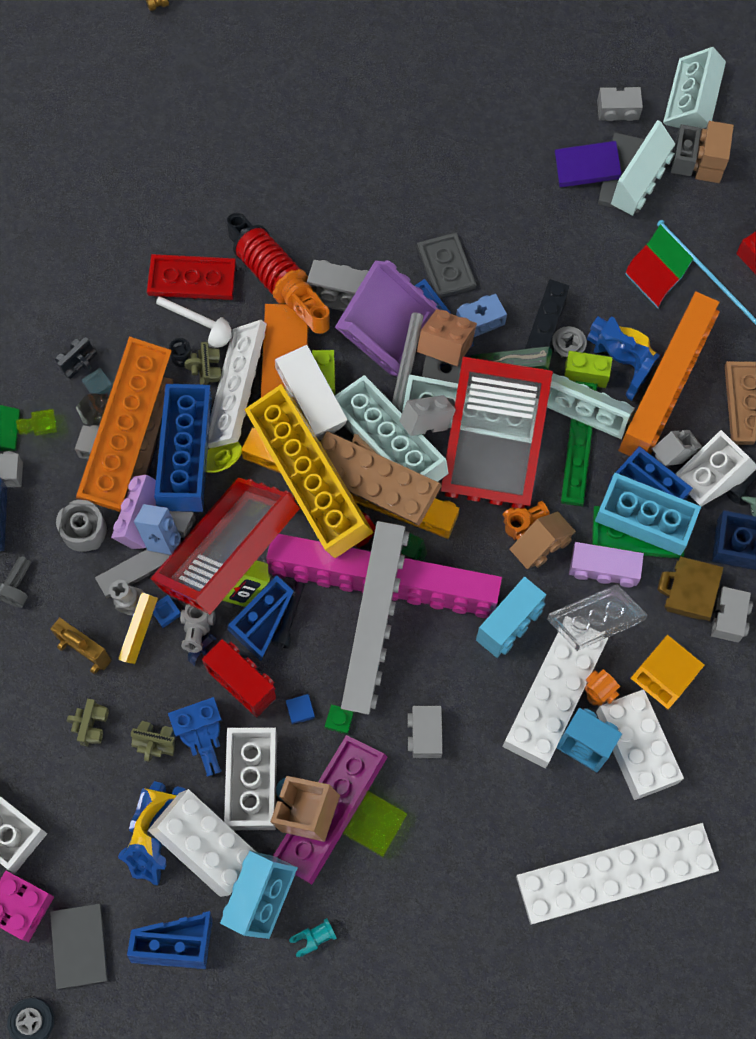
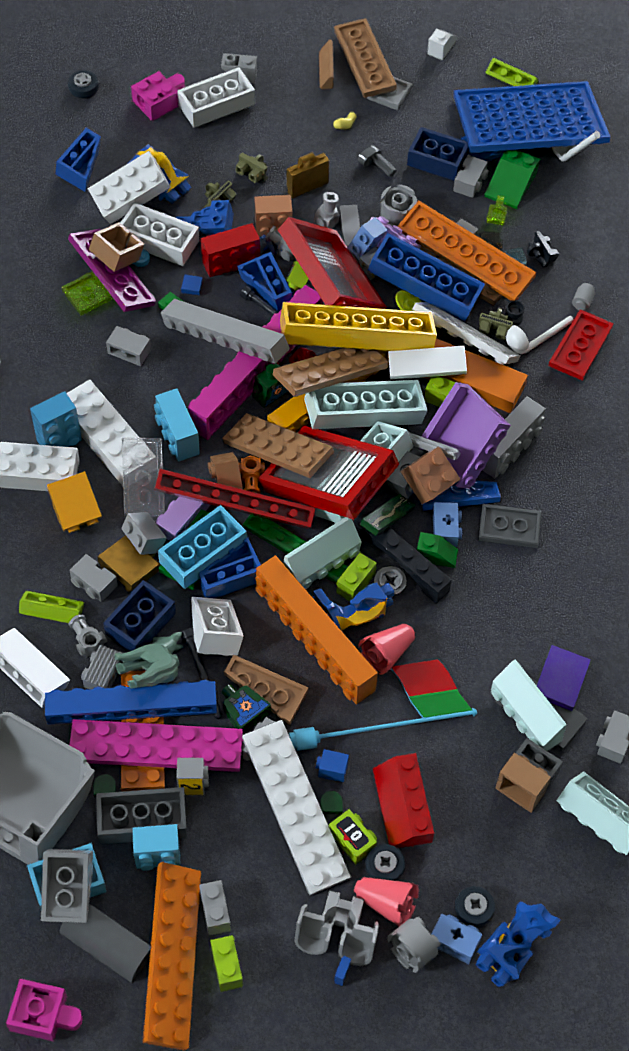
camera: 115 degrees right, 10 degrees down
(79, 946) = (112, 120): dark grey tile -> none
(126, 294) = (584, 297): none -> light grey brick
(138, 628) = (305, 211): yellow tile -> none
(162, 650) = (271, 212): none -> nougat brick
(258, 895) = (78, 204): medium azure brick -> none
(277, 271) = (553, 388): piece -> none
(314, 937) = (36, 233): teal piece -> none
(427, 414) = (362, 420): light grey brick -> none
(484, 500) = (278, 445): none -> medium nougat plate
(518, 316) = (437, 550): none -> green slope
(579, 512) = (234, 499): none -> red brick
(601, 688) = (89, 453): orange connector -> none
(645, 310) = (387, 646): none -> coral cone
(657, 586) = (143, 533): none -> light grey brick
(676, 448) = (247, 600): light grey brick -> none

